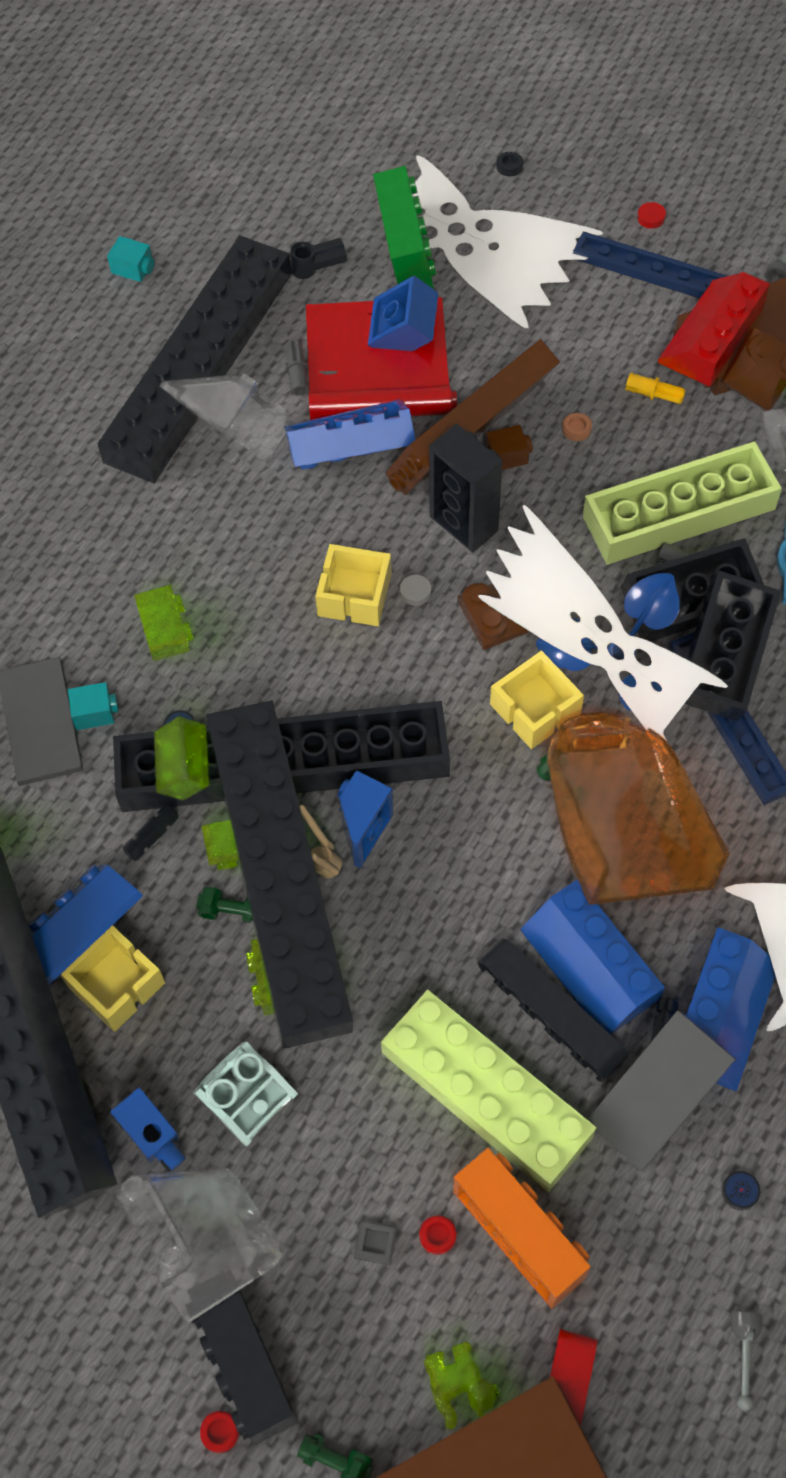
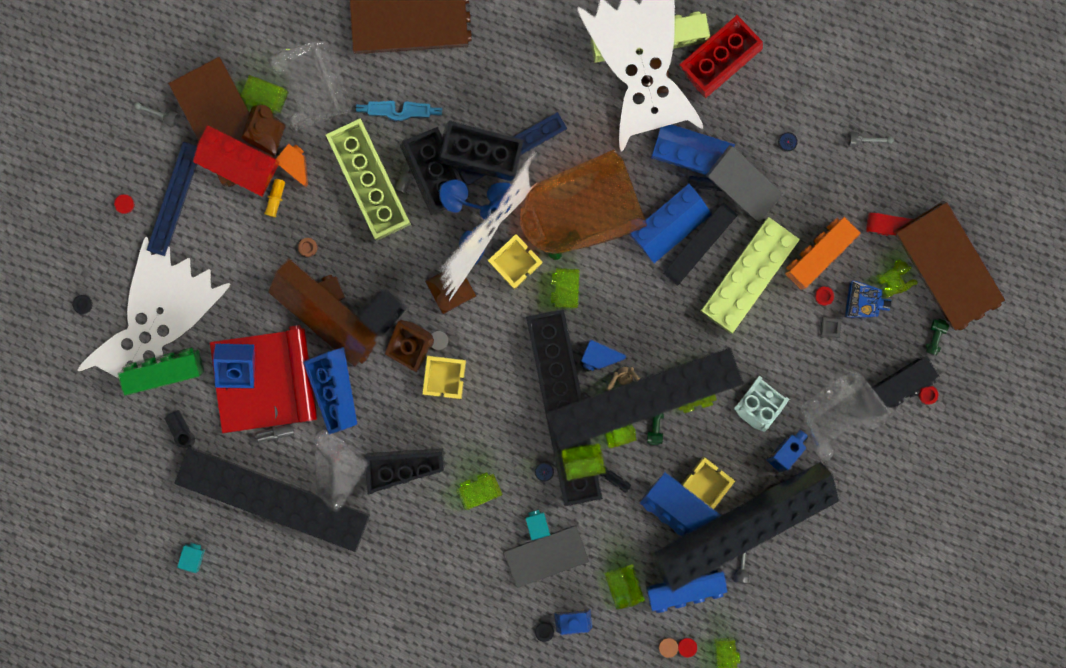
camera: 100 degrees left, 25 degrees up
(220, 517) = (400, 467): none -> black wedge
(415, 543) = (409, 344): none -> reddish brown slope
(420, 1312) = (865, 301): none -> torso
(485, 776) = (566, 288): none -> clear neon green brick
(707, 412) = (294, 163): none -> orange slope

